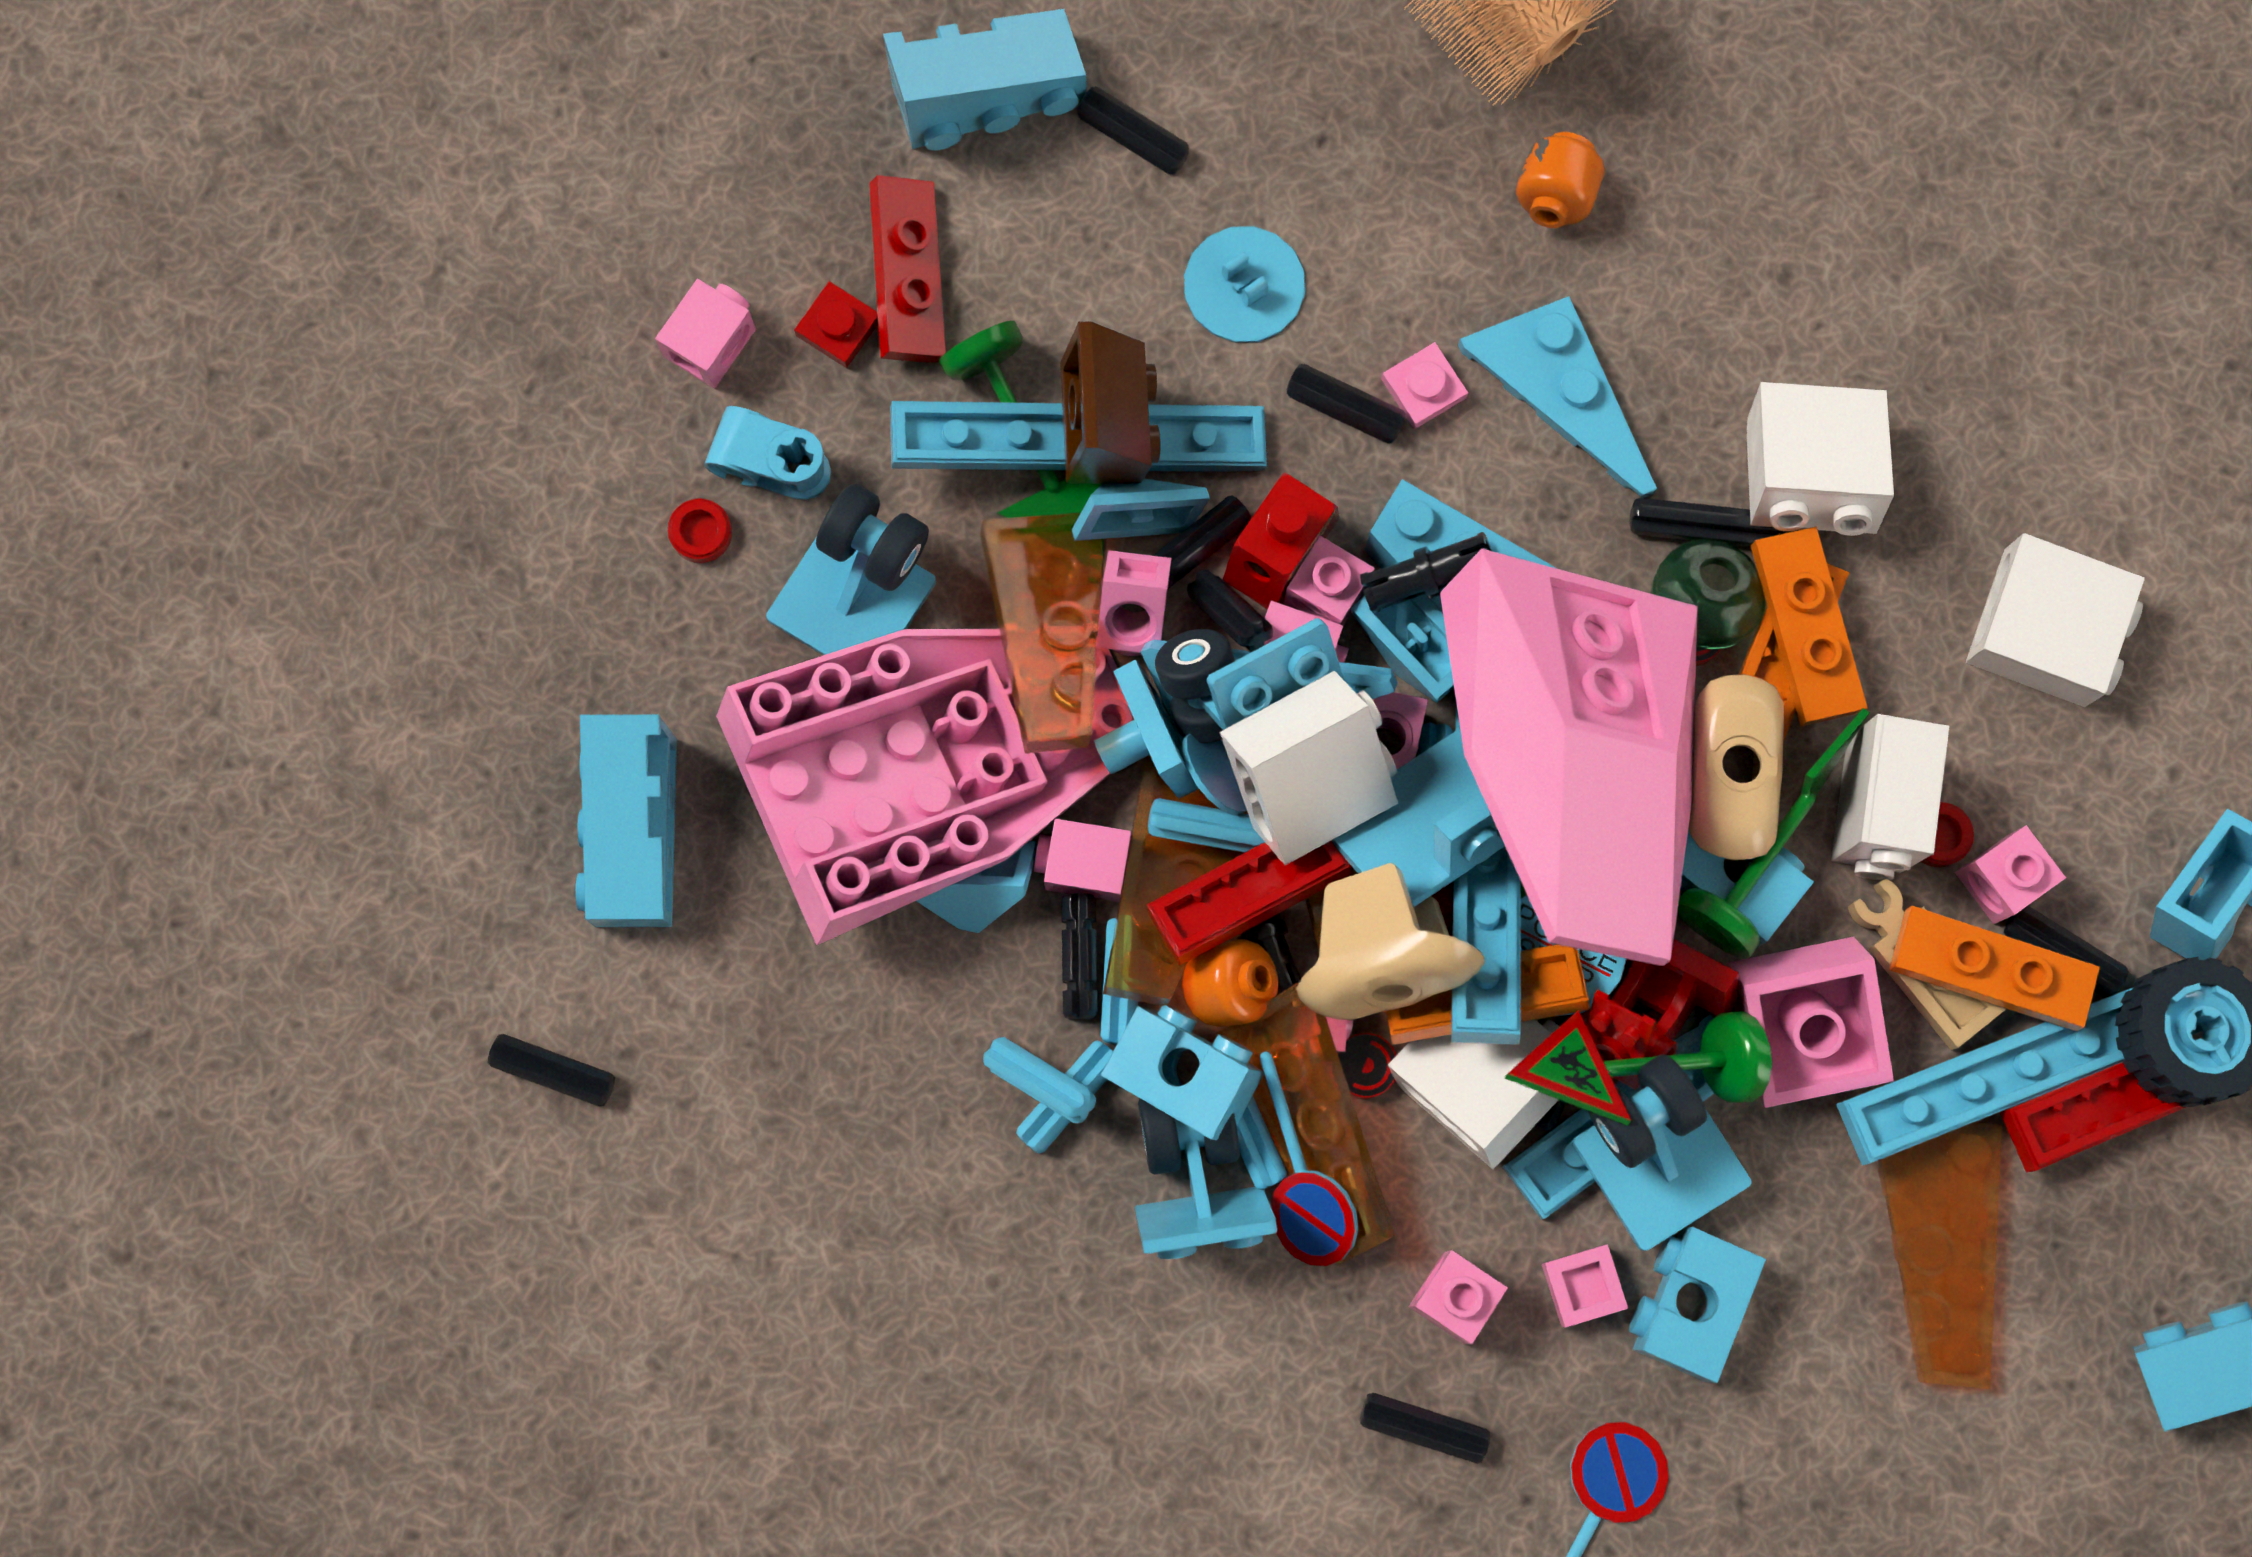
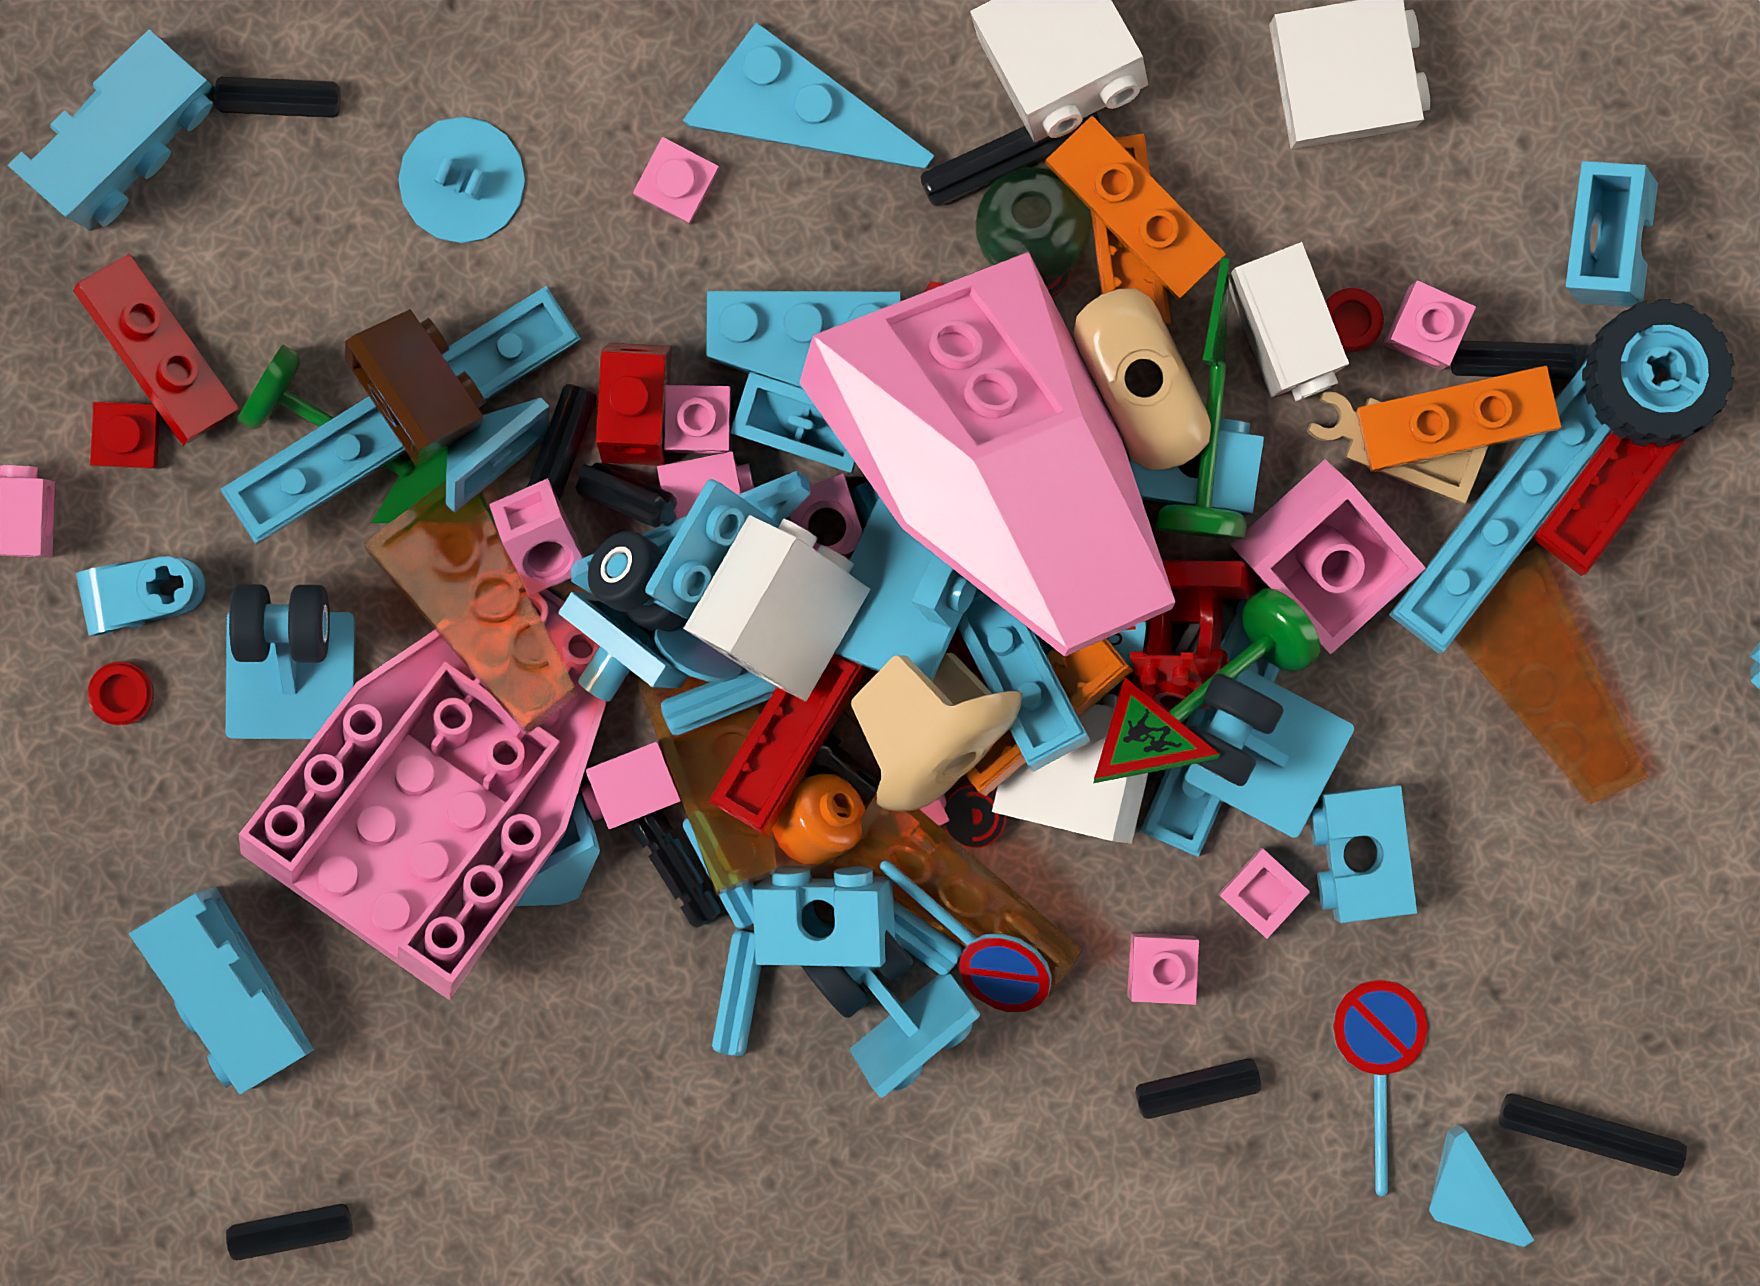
camera: 30 degrees left, 10 degrees up
(1039, 1080) = (706, 996): medium azure axle -> none
(1345, 403) = (616, 238): black axle -> none
(1420, 575) = (776, 371): black pin -> none

